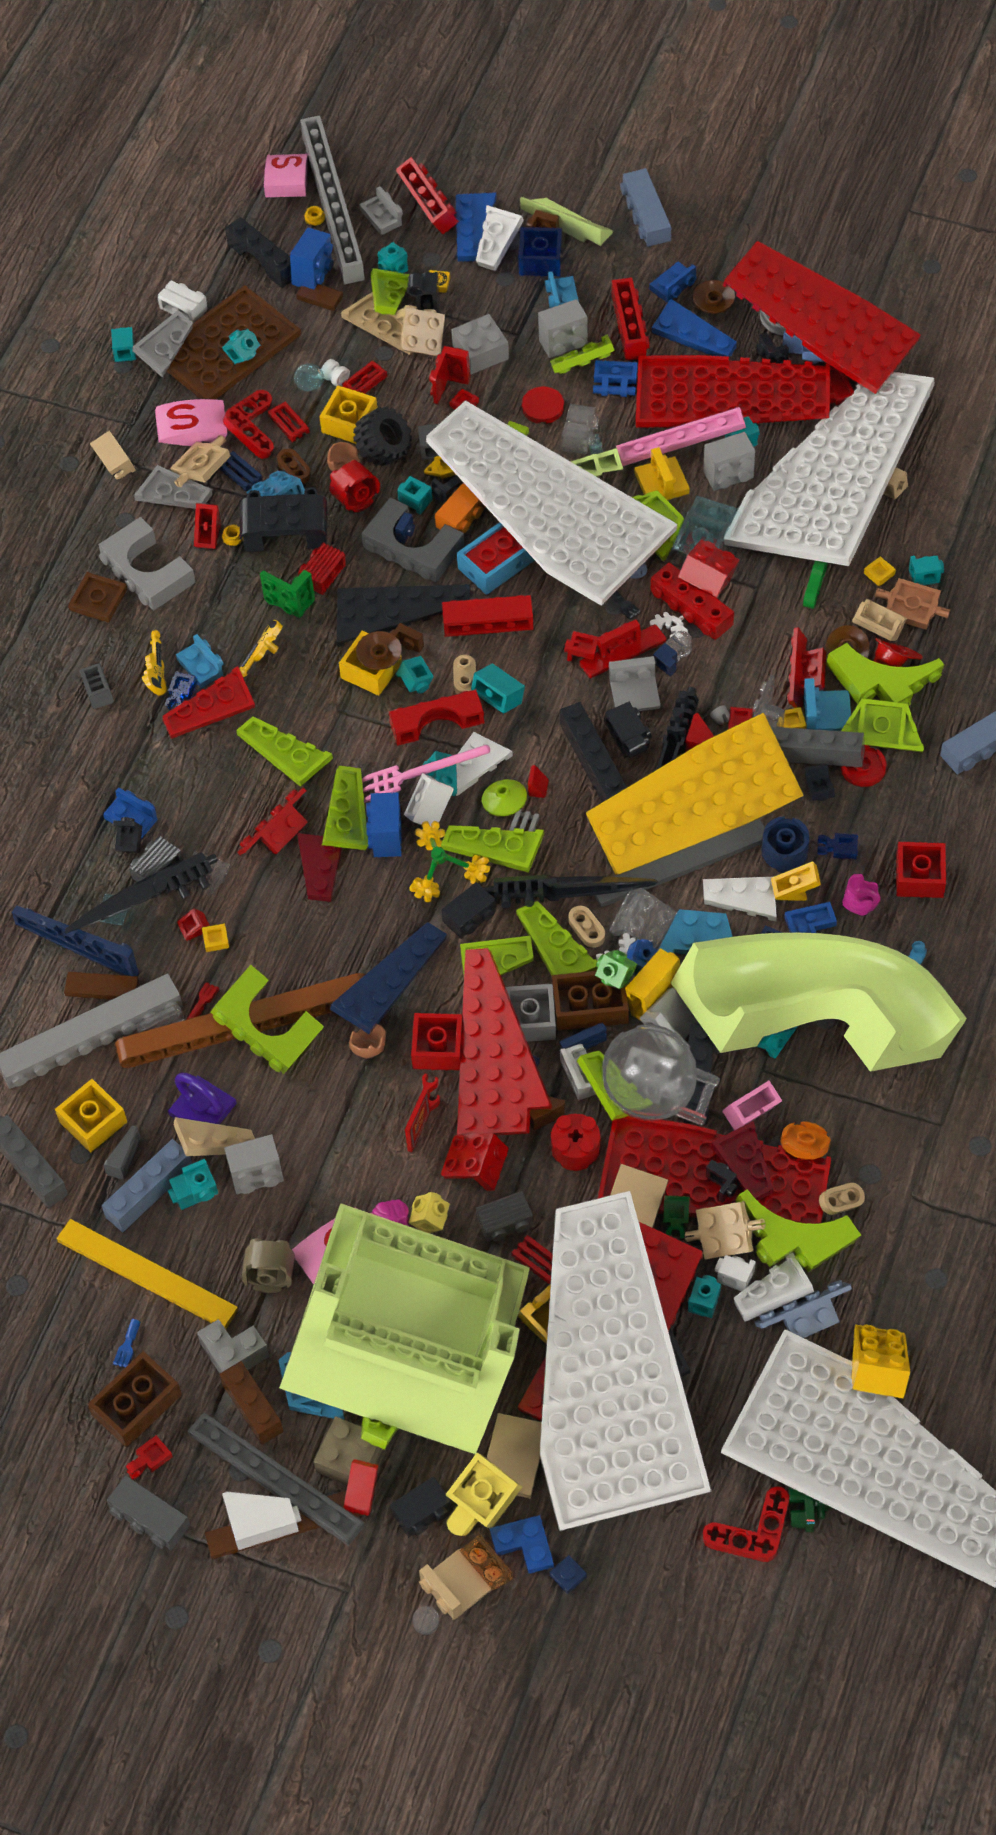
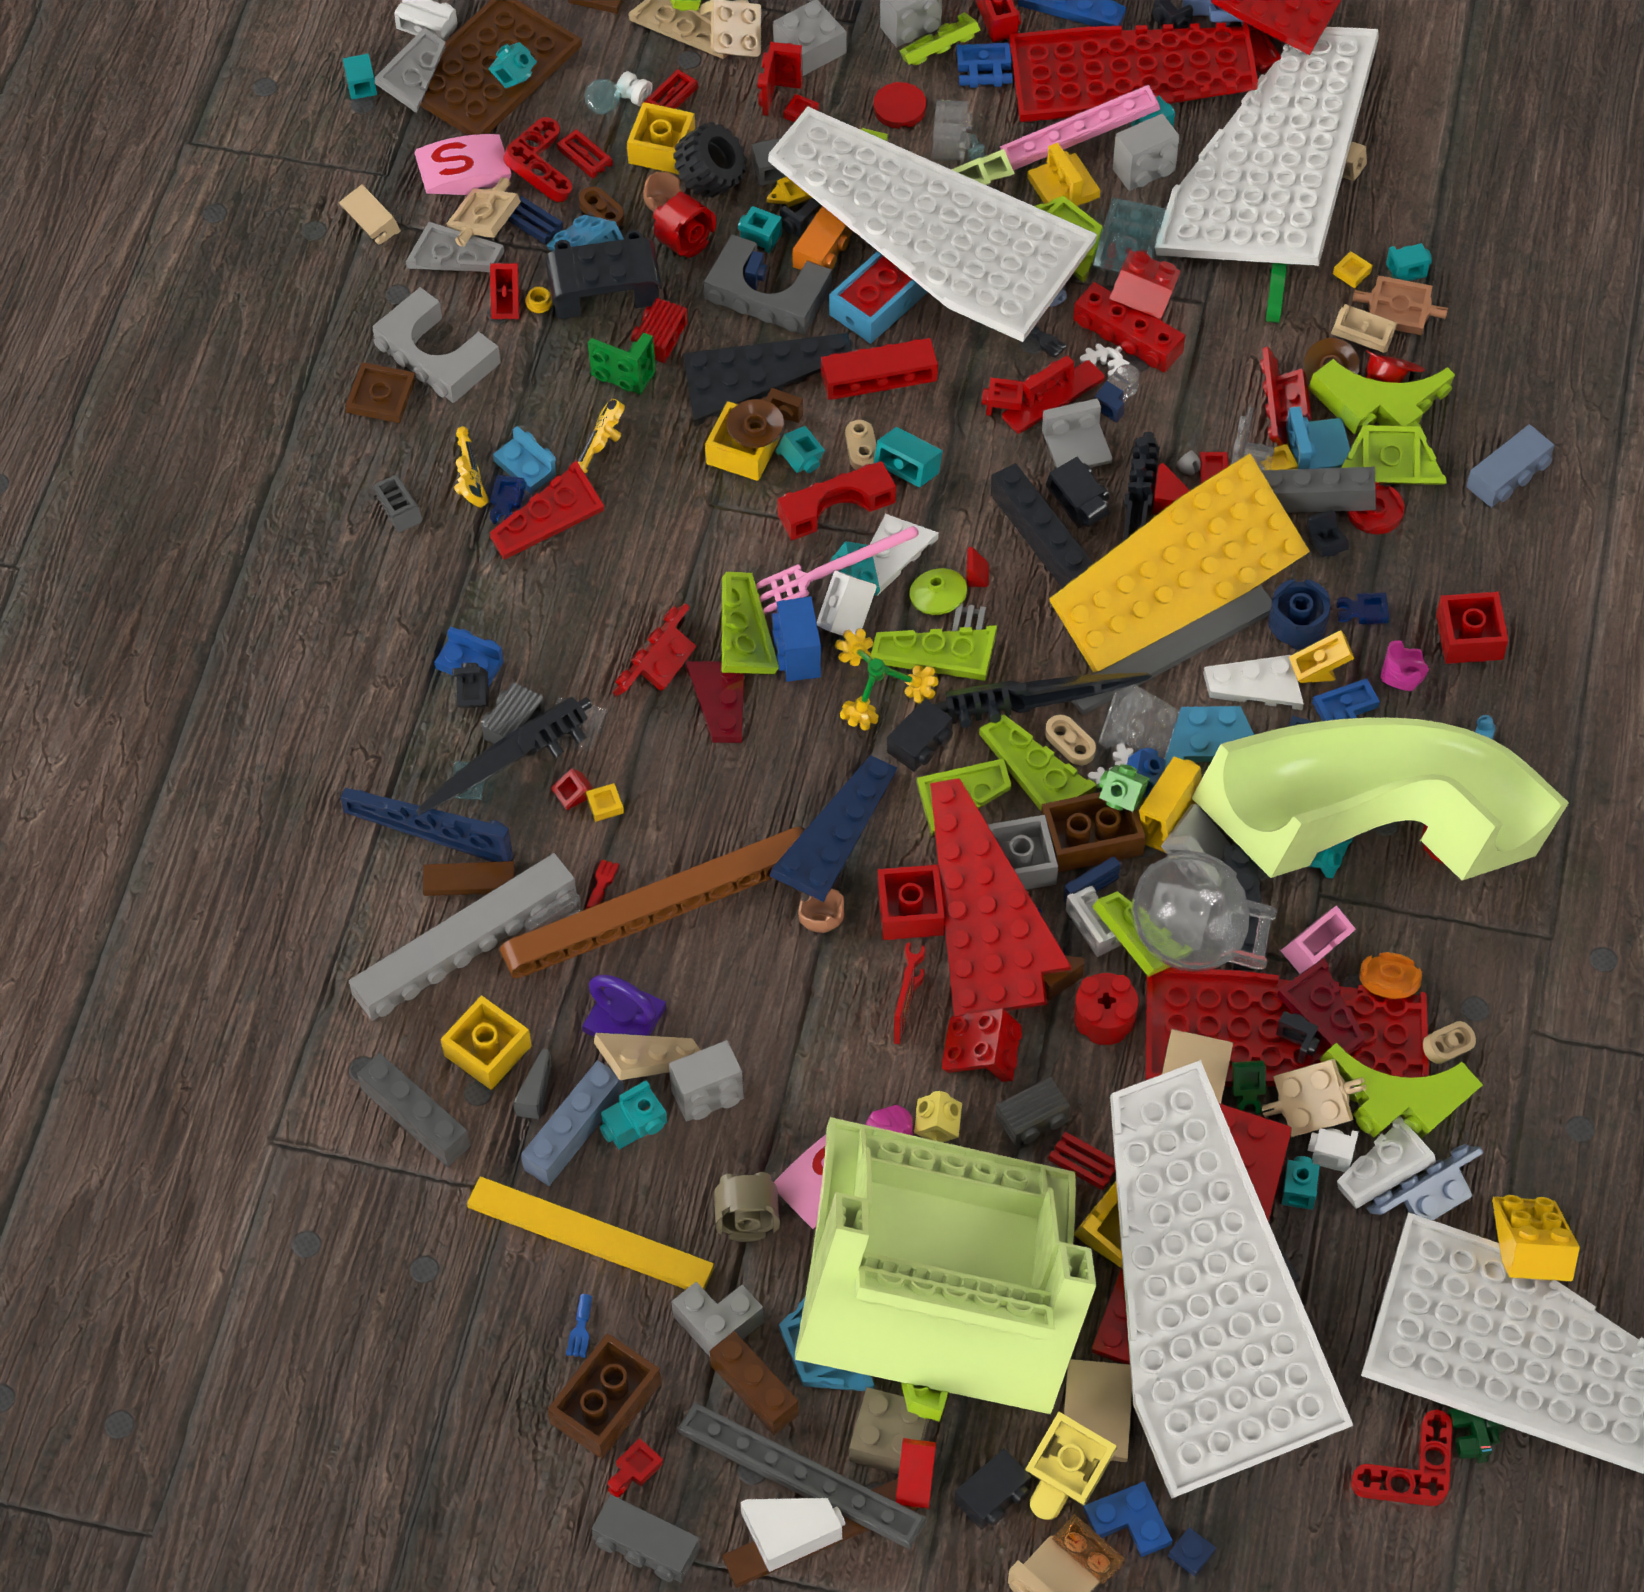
camera: 10 degrees left, 0 degrees up
(234, 1013) = (650, 893): lime arch -> none
(284, 751) = (658, 565): lime wing -> none

